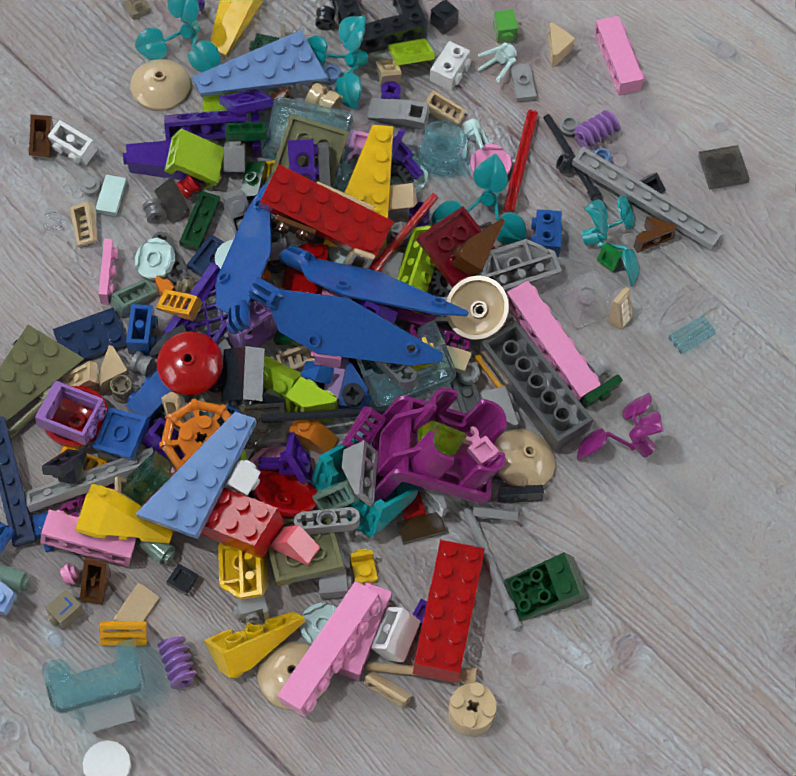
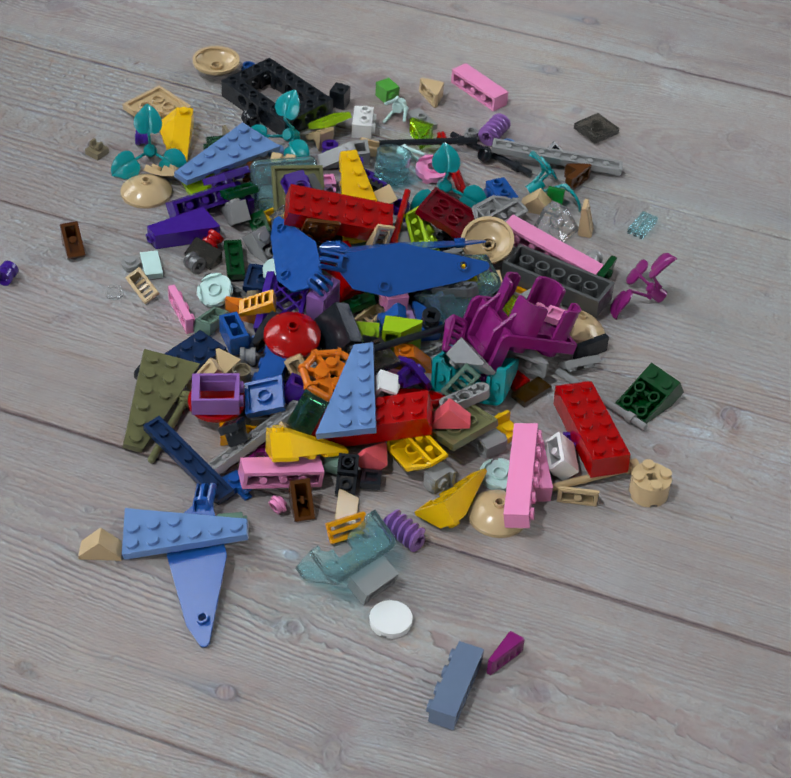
camera: 25 degrees left, 20 degrees down
(64, 610) = (289, 528): dark tan brick -> none
(72, 142) = (102, 237): white brick -> none
(156, 567) = (347, 473): none -> black slope
(182, 63) = (165, 172): none -> tan slope
(195, 157) = (208, 215): lime panel -> none
(195, 556) = (373, 457): none -> coral slope
(474, 252) = (464, 207): reddish brown slope -> none
(510, 104) = (420, 130): none -> clear neon green slope
(544, 134) = (460, 141): none -> black bar
(584, 258) = (536, 201): none -> tan slope

